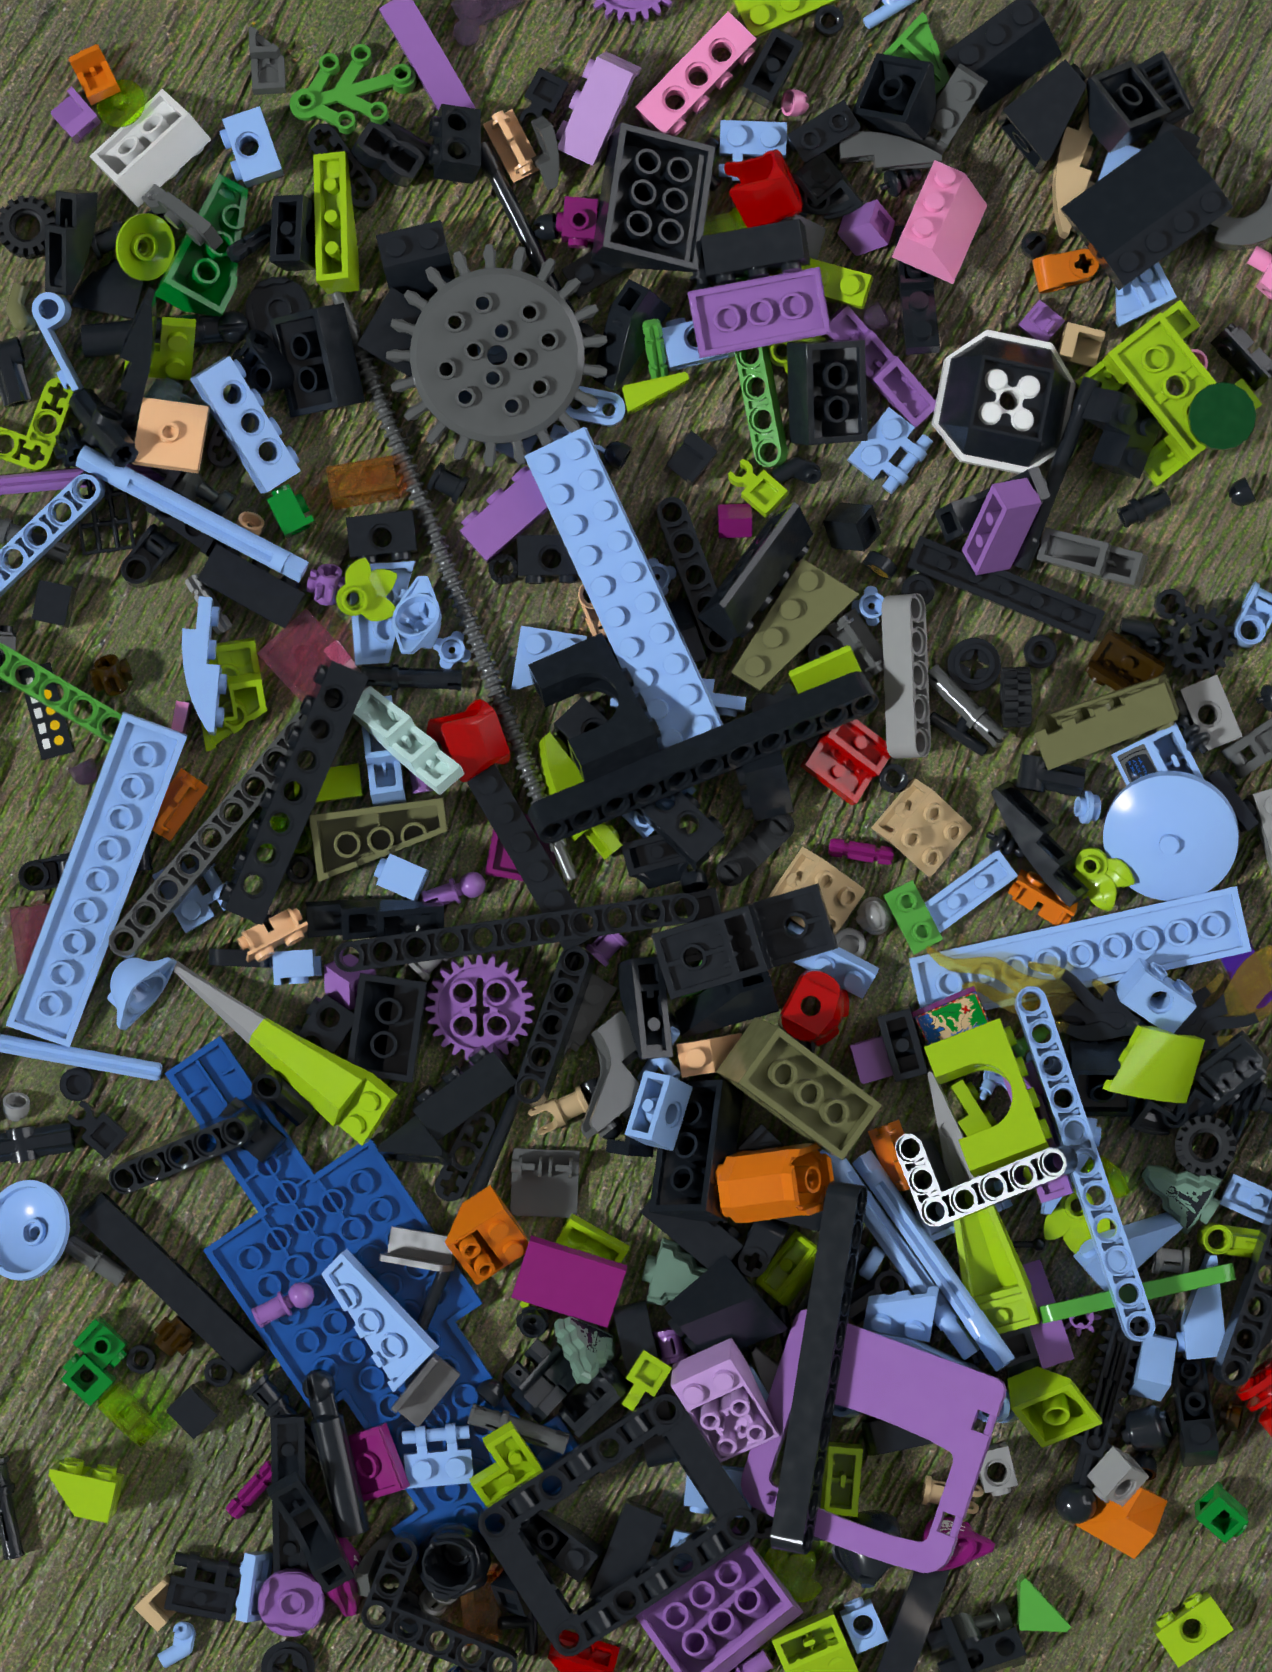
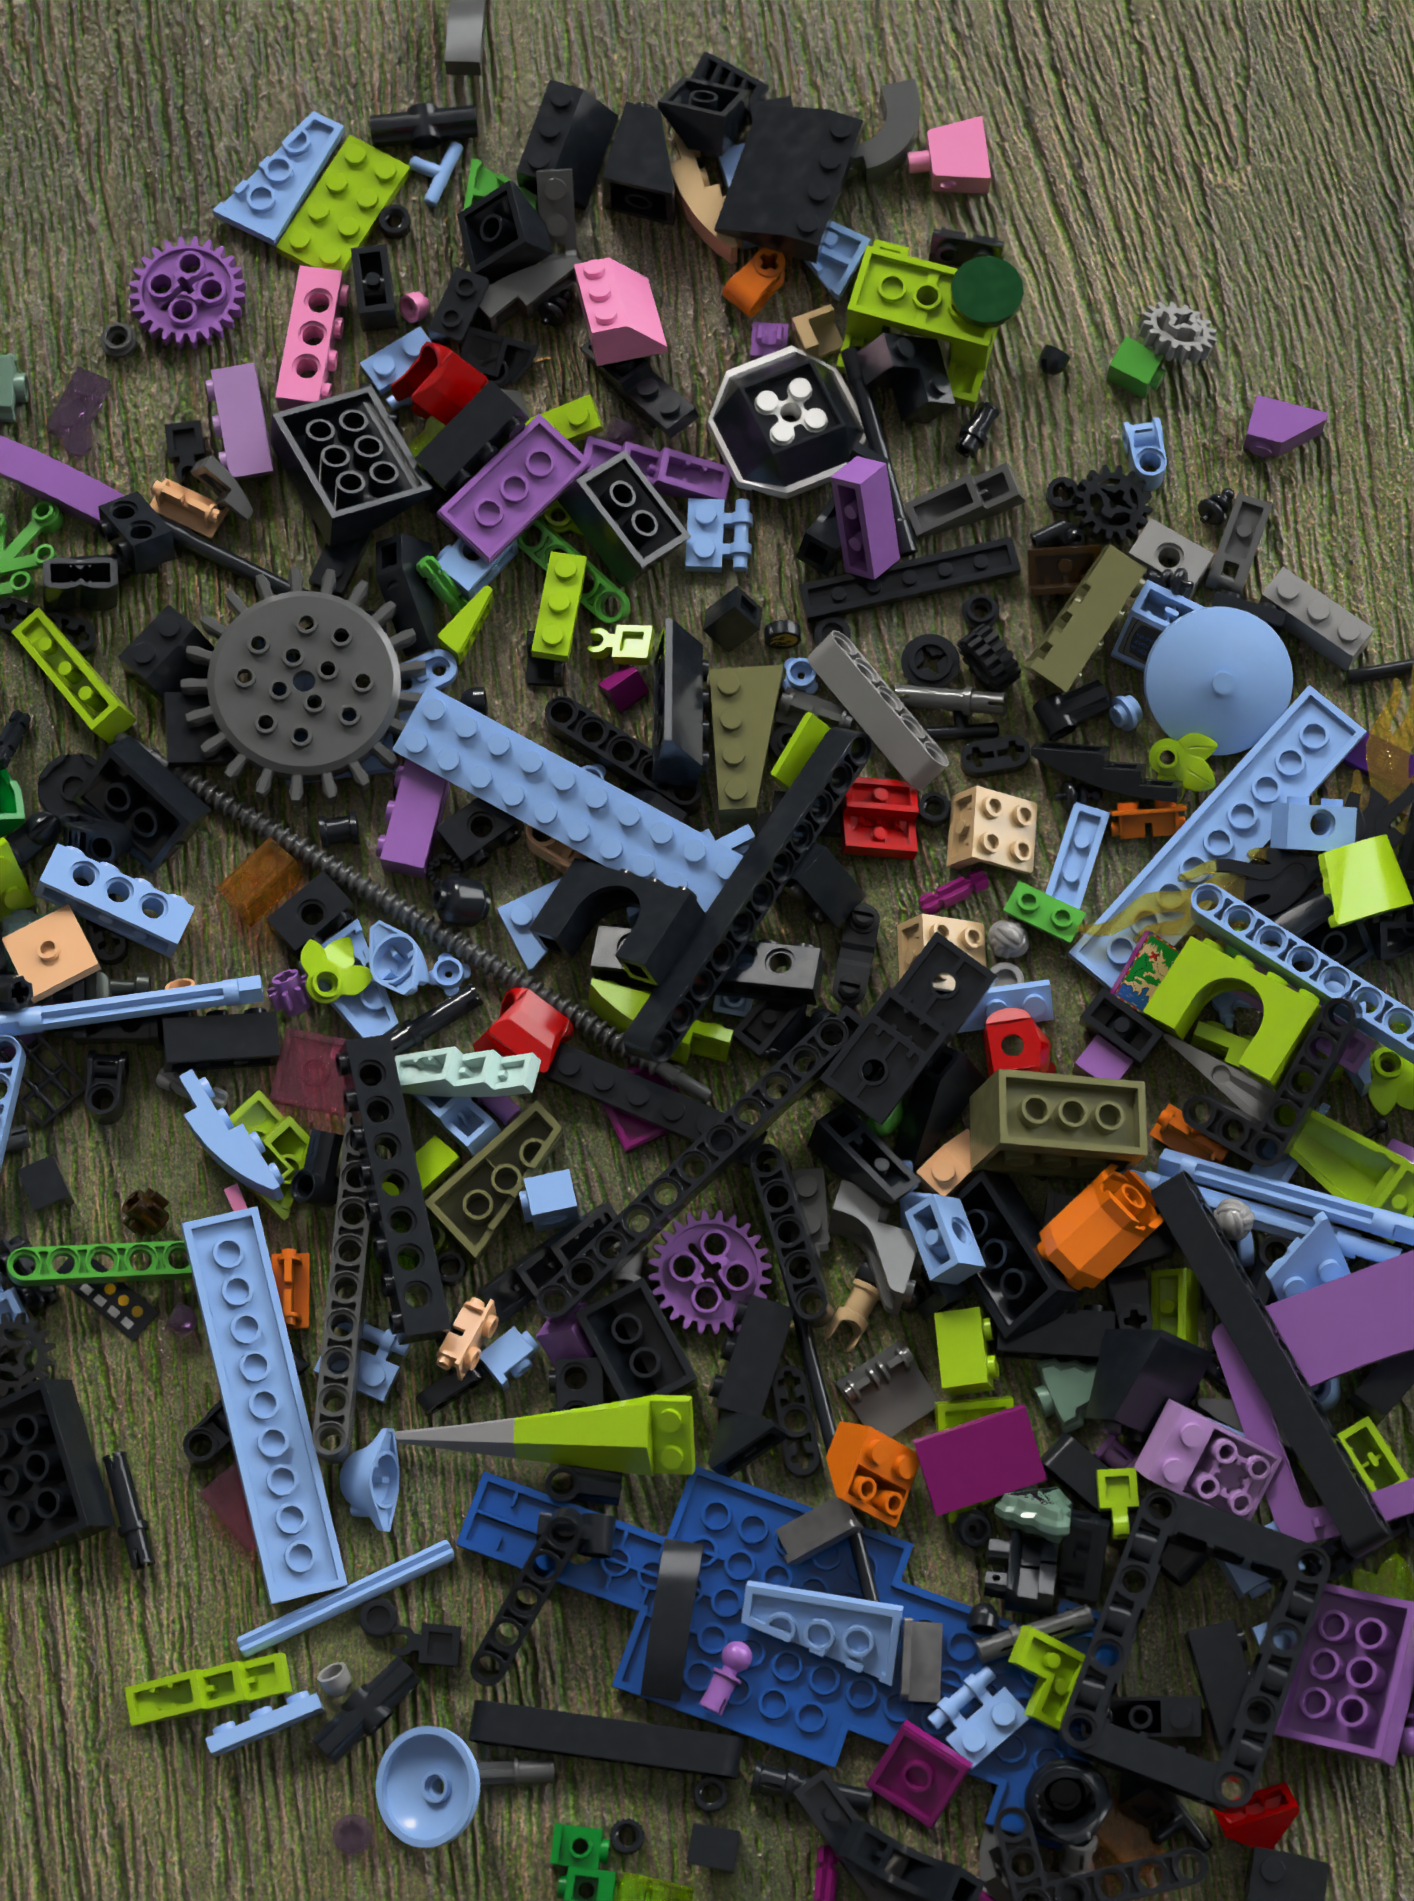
camera: 30 degrees left, 15 degrees down
(174, 1336) = (643, 1788): dark brown gear -> none
(250, 740) = (317, 1181): none -> black piece
(276, 1235) = (671, 1620): none -> black slope
(290, 511) = (211, 953): green brick -> none
(293, 233) = (41, 707): black brick -> none
(335, 1455) = (880, 1786): black piece -> none
(470, 885) = (619, 1169): medium lavender pin -> none
(497, 604) = (461, 901): none -> black head
(547, 227) = (268, 554): black hinge -> none
(578, 221) = (294, 528): magenta brick -> none
(606, 946) = (785, 1133): medium lavender bush -> none
(618, 1195) = (965, 1351): none -> lime brick
(727, 429) = (559, 606): none -> lime plate
(799, 469) = (649, 605): black arm -> none
(866, 228) = (556, 364): medium lavender panel -> none
(876, 1242) = (1234, 1218): none -> light grey piece
(971, 763) = (993, 748): none -> black beam
(1039, 249) = (704, 281): black hinge -> none

